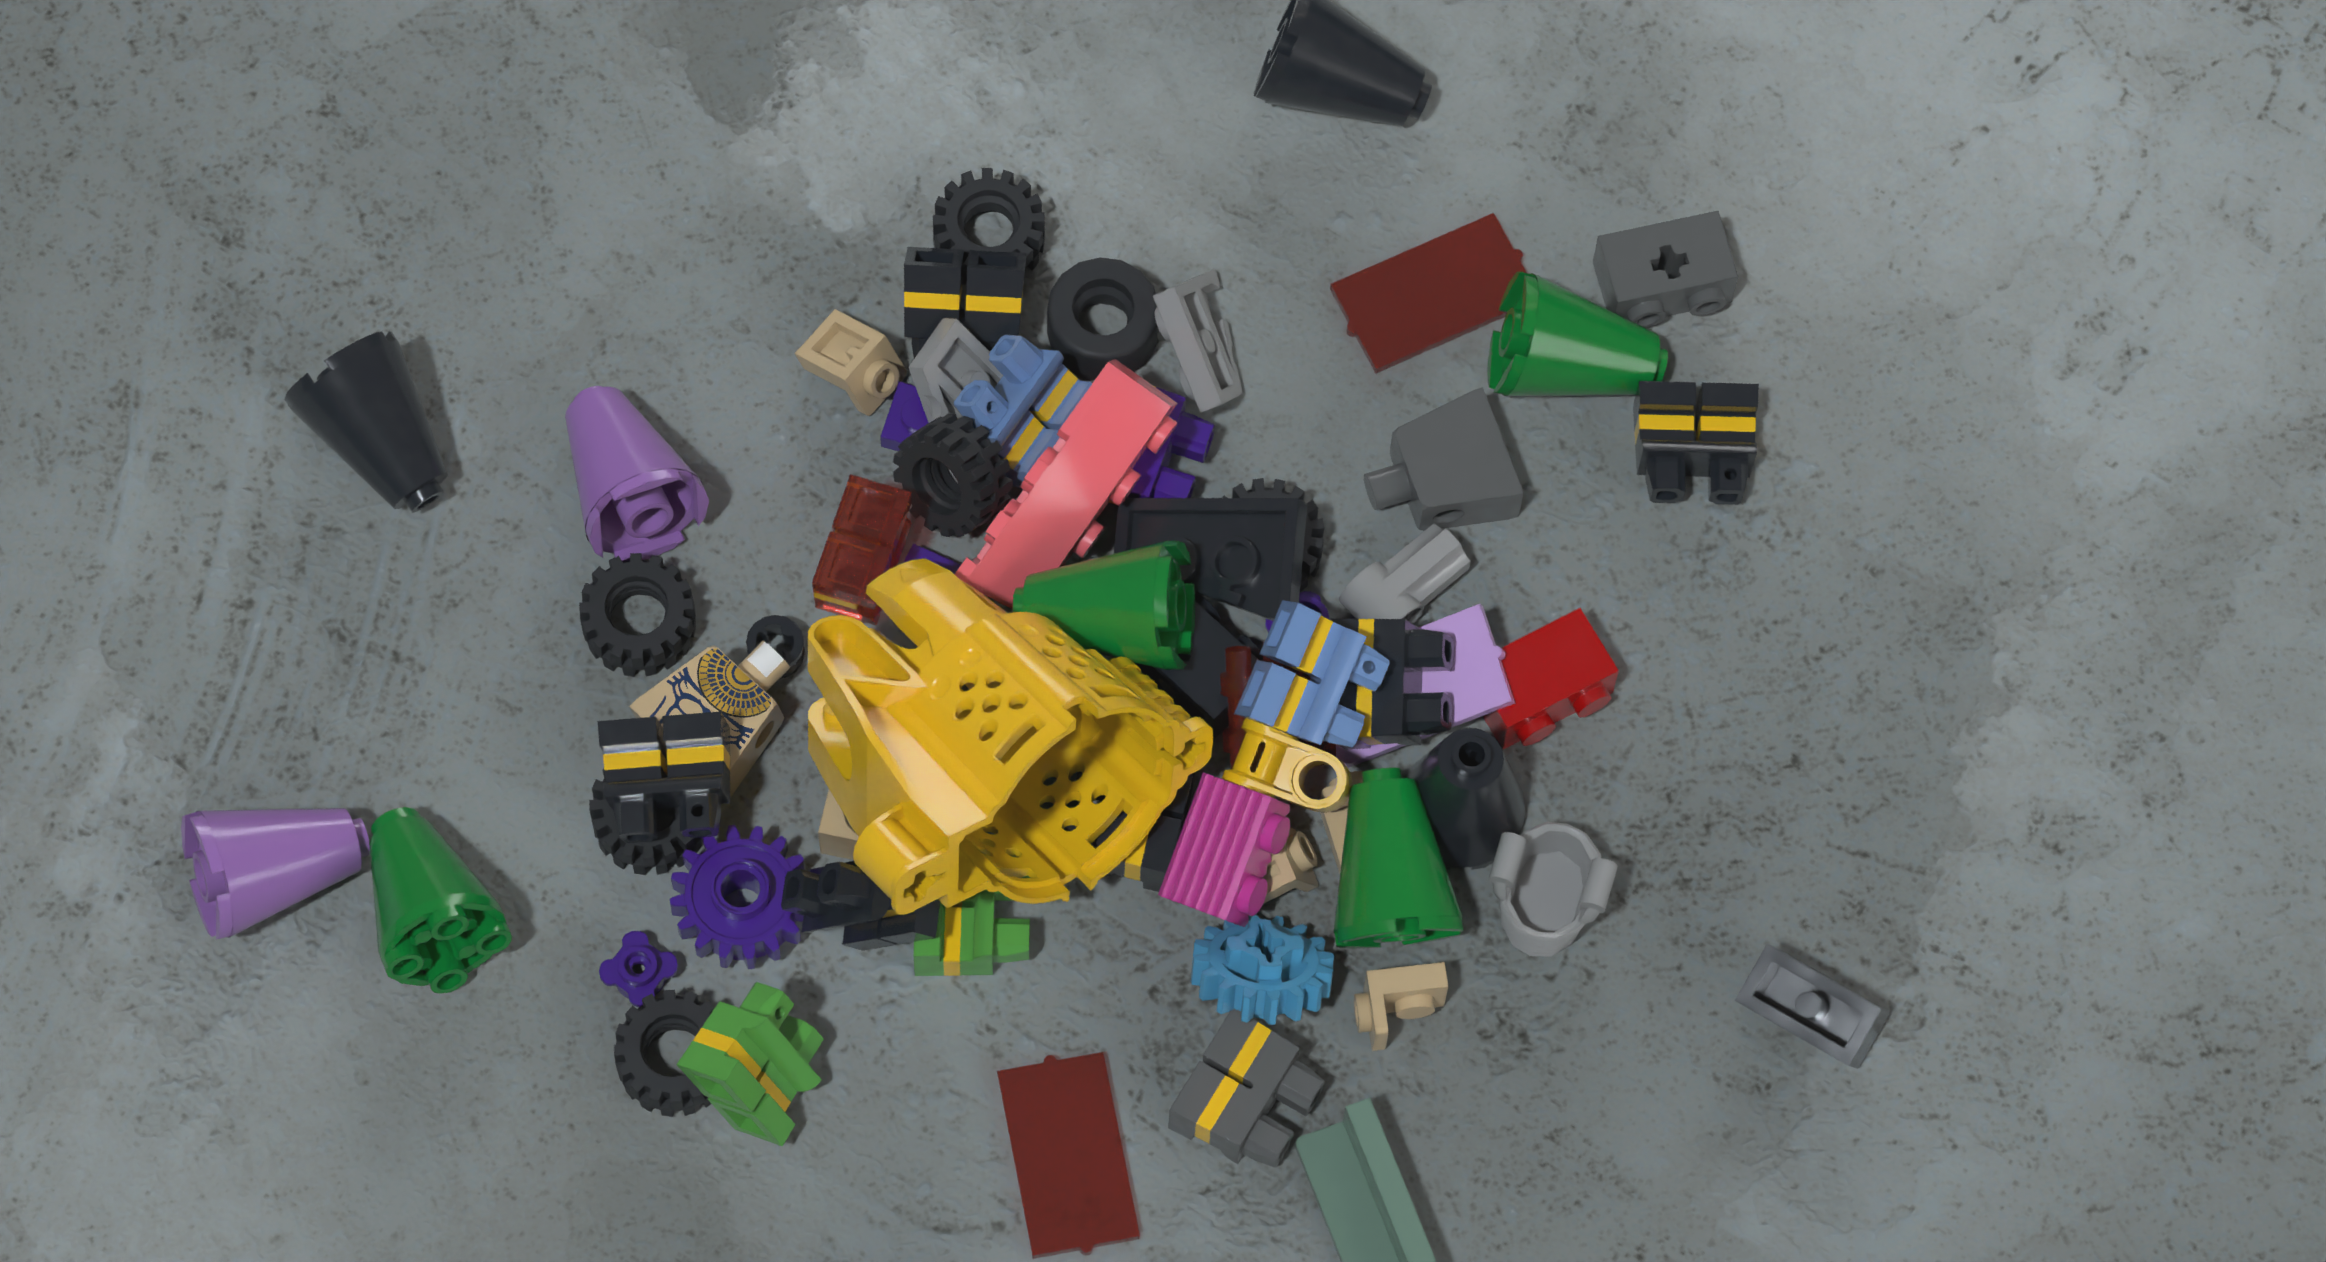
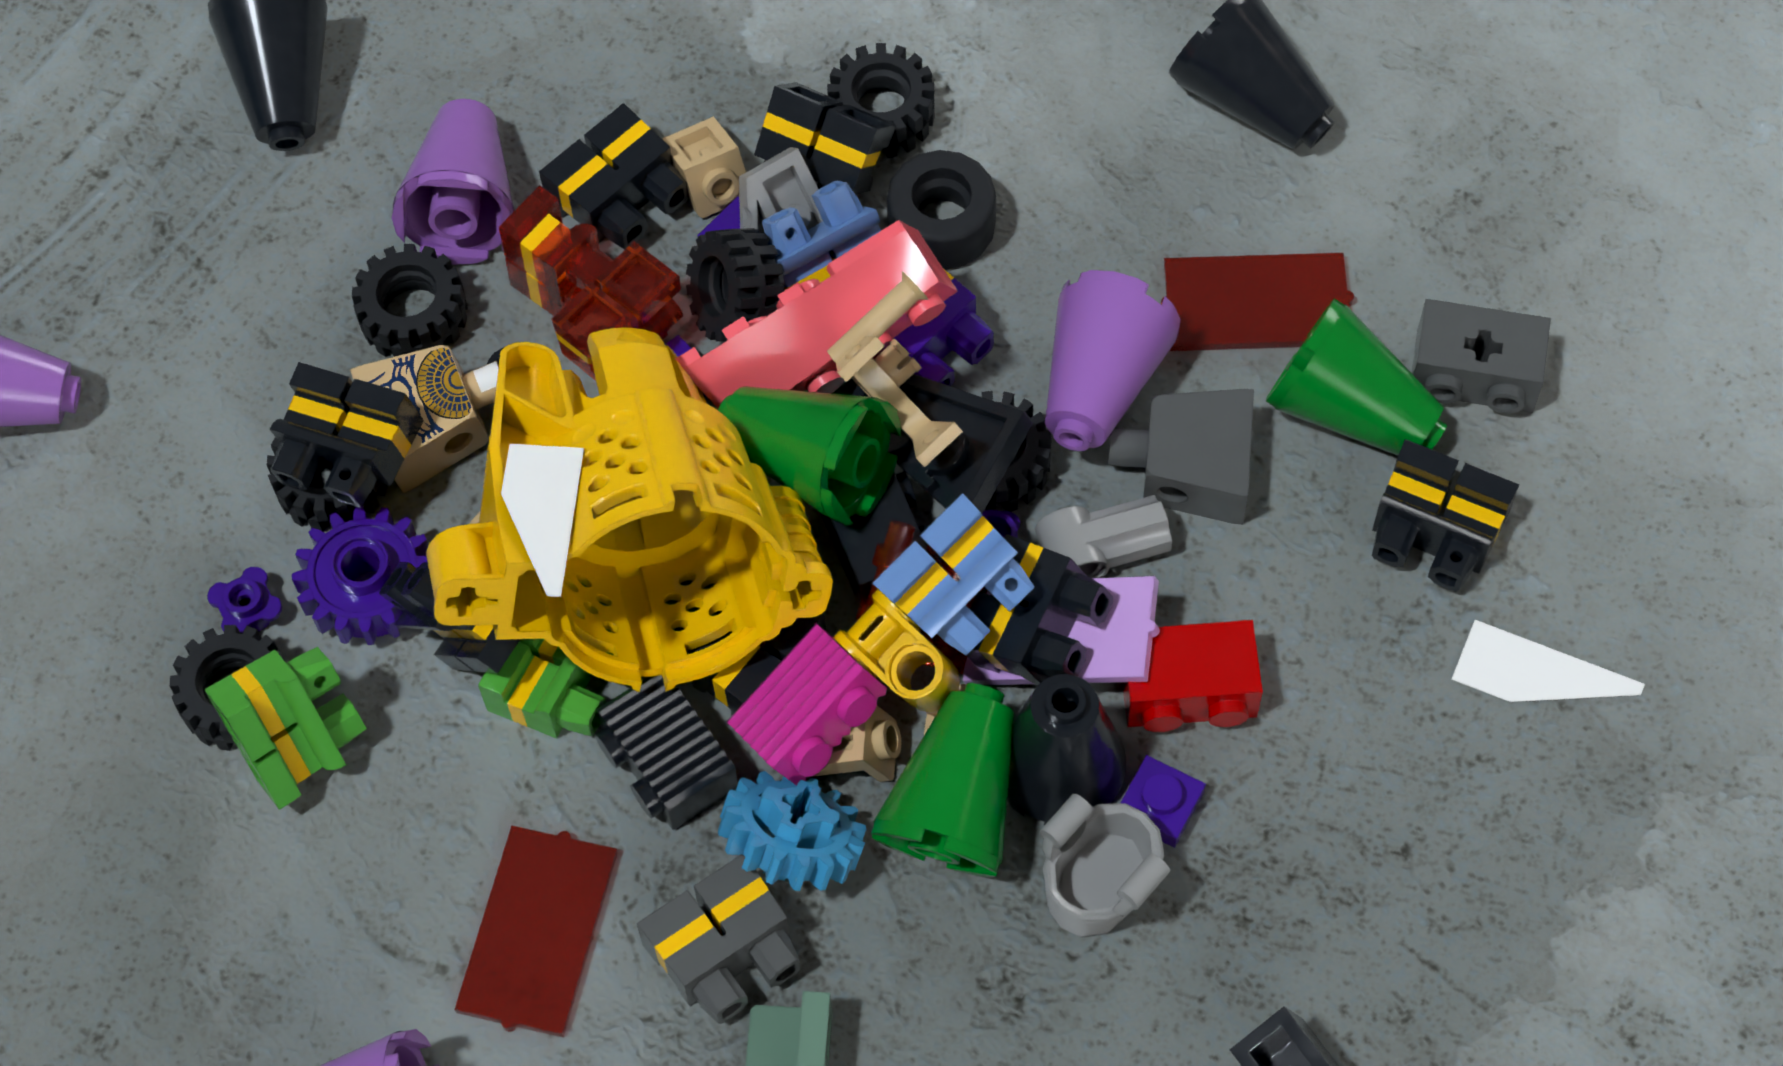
camera: 30 degrees right, 5 degrees down
(429, 905) = (89, 474): green cone -> none
(768, 408) = (615, 177): none -> black hips
(771, 522) = (546, 256): none -> clear red hips
(943, 764) = (541, 498): none -> white sticker
(1108, 945) = (667, 751): none -> black brick
(1145, 503) = (891, 368): none -> tan piece
(1201, 345) = (1014, 252): light grey wing -> none
(1331, 410) = (1103, 354): none -> medium lavender cone
(1404, 990) = (919, 907): tan bracket -> none
(1567, 799) = (1165, 796): none -> dark purple plate
(1834, 551) = (1532, 672): none -> white sticker

